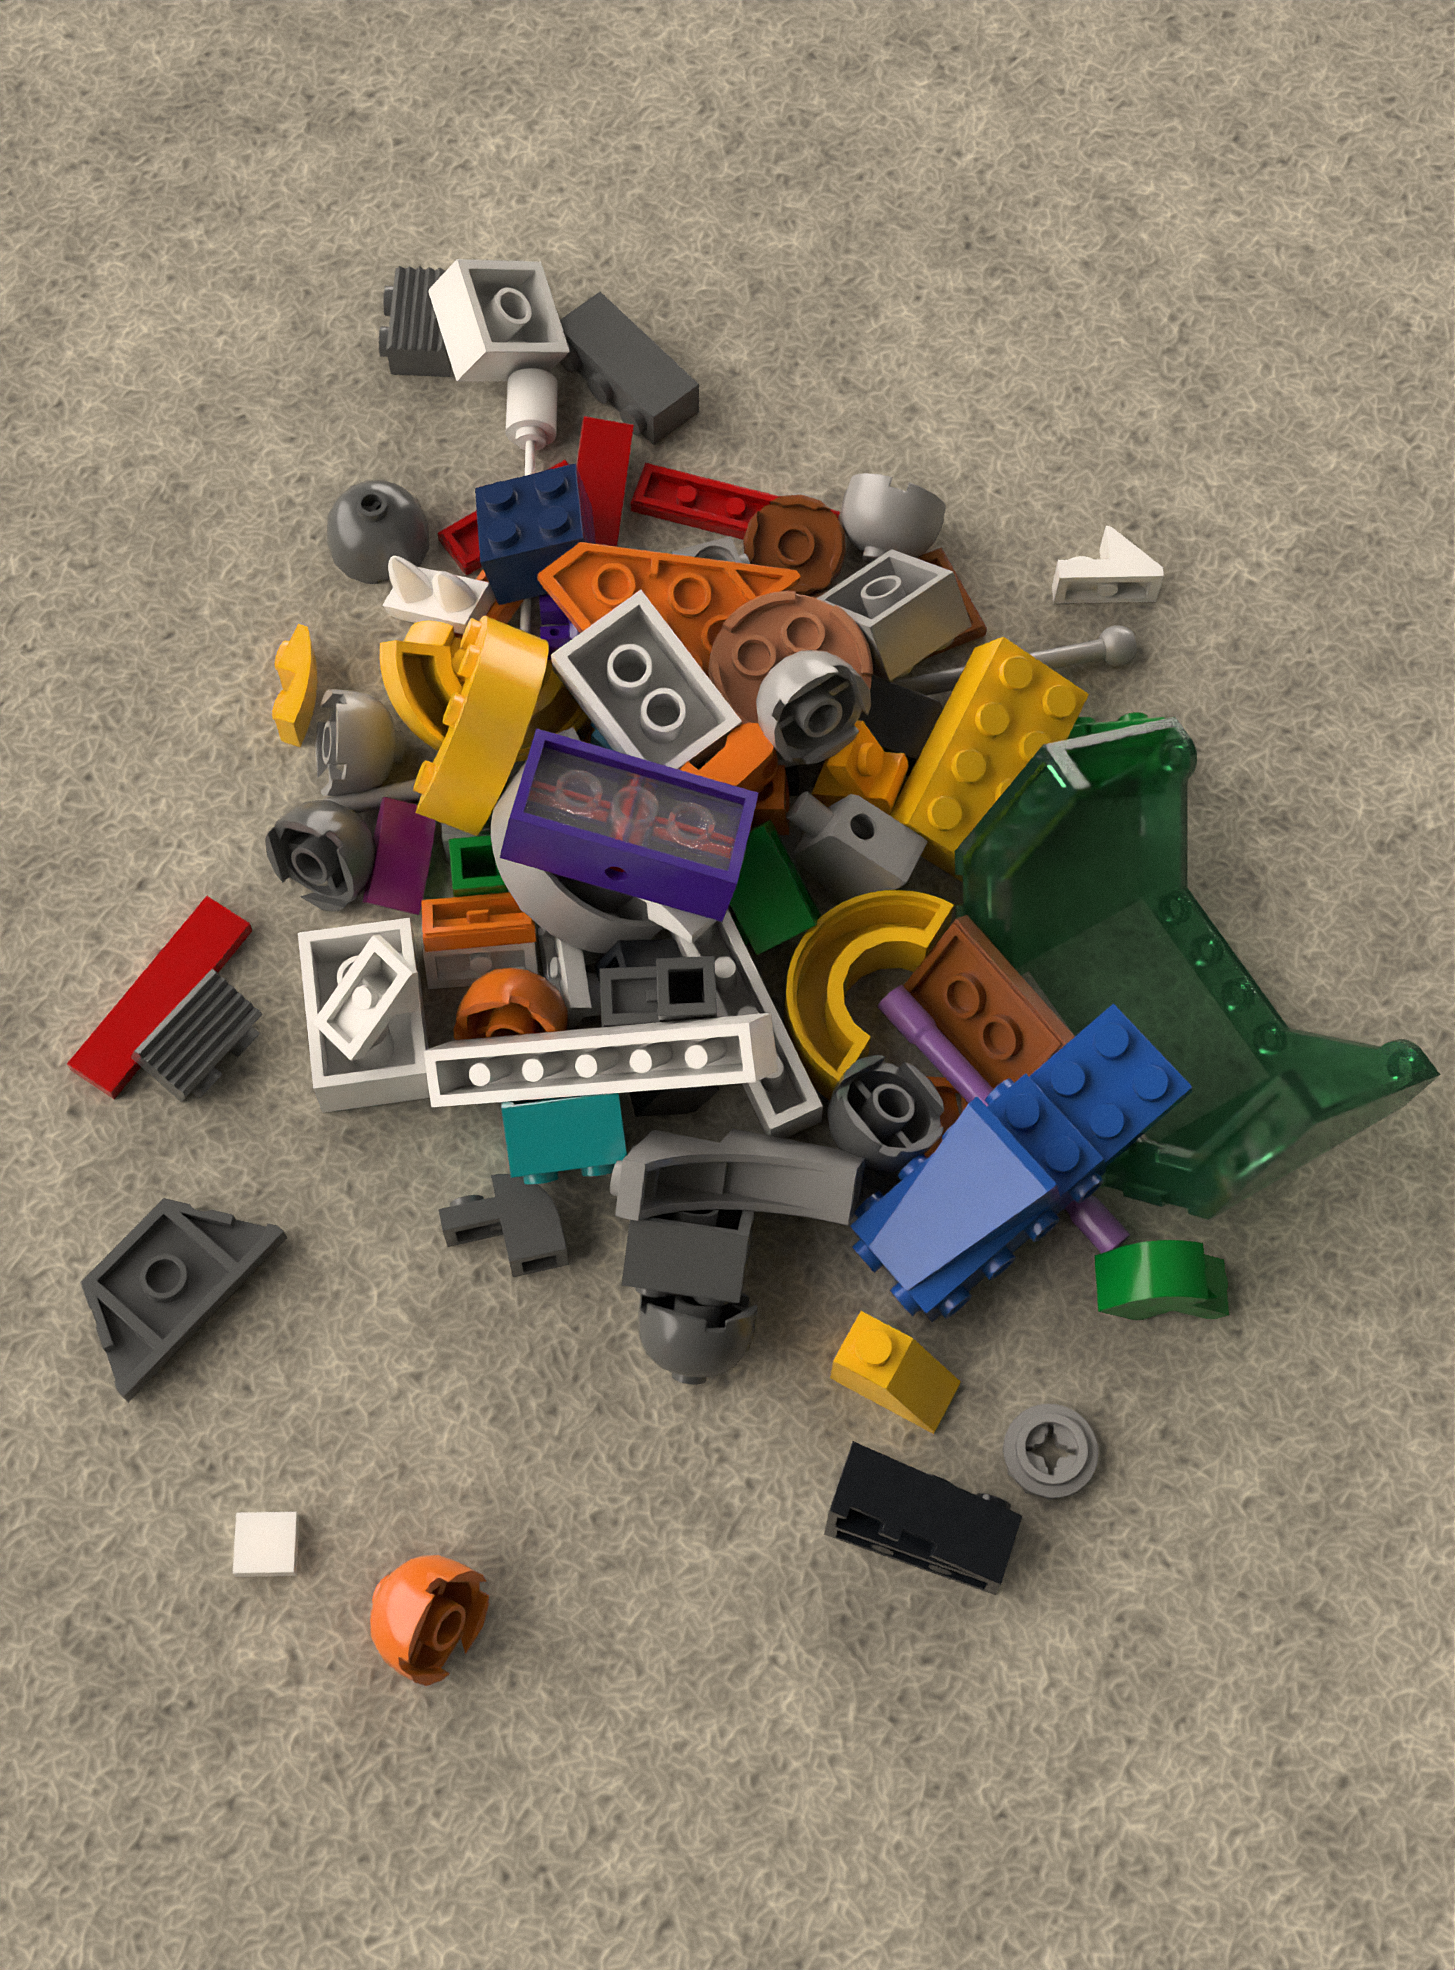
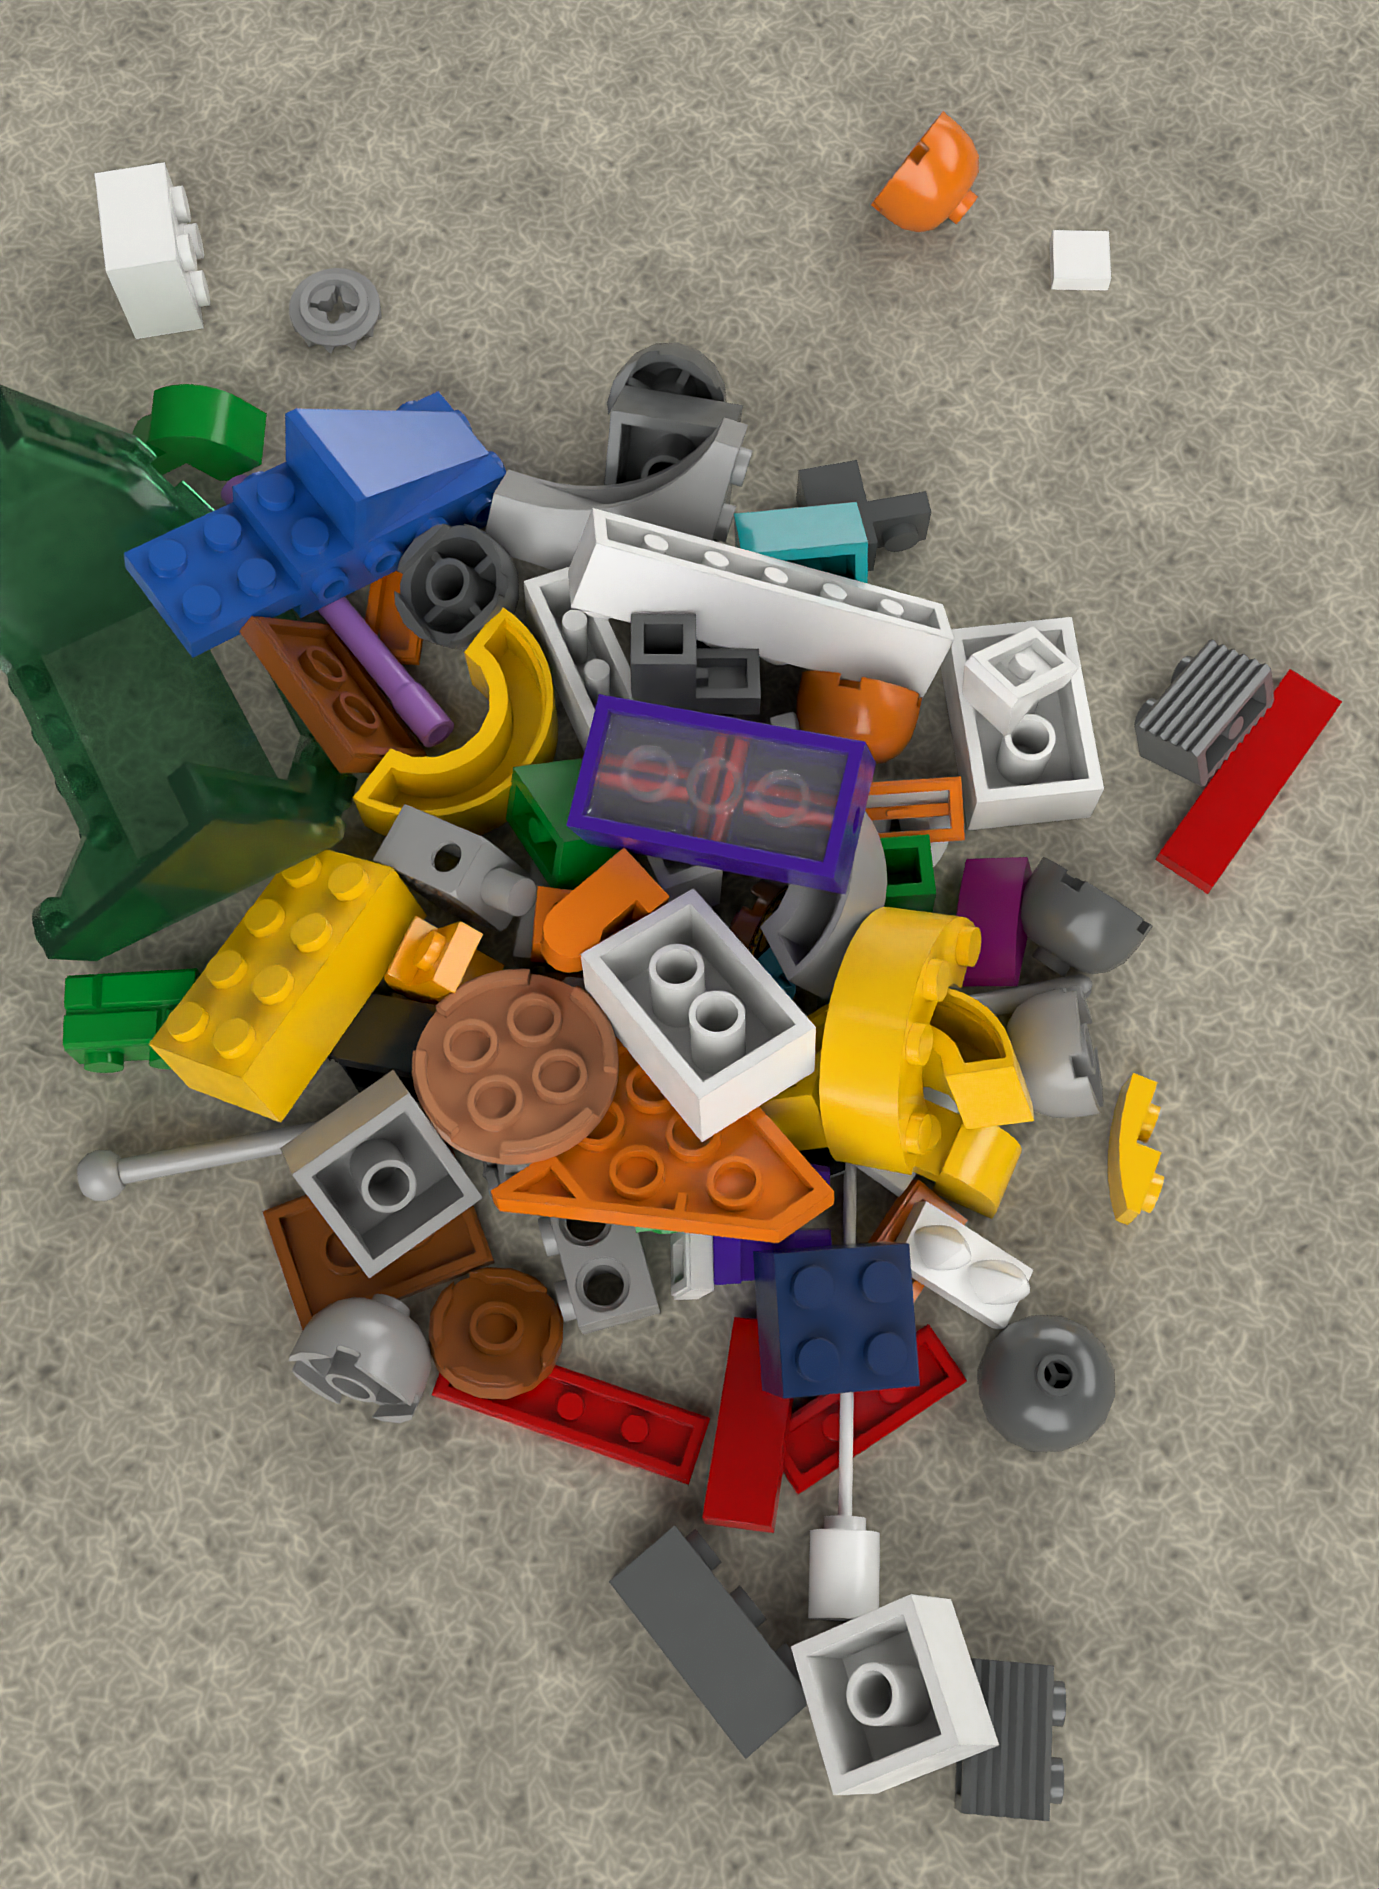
camera: 175 degrees left, 5 degrees up
(169, 1283) = (1199, 481): dark grey wing -> none
(811, 705) = (498, 977): light grey cylinder -> none
(894, 1372) = (483, 373): yellow slope -> none
(922, 1520) = (469, 238): black wedge -> none
(1118, 576) = (78, 1275): white slope -> none
(1246, 1473) = (151, 250): none -> white brick

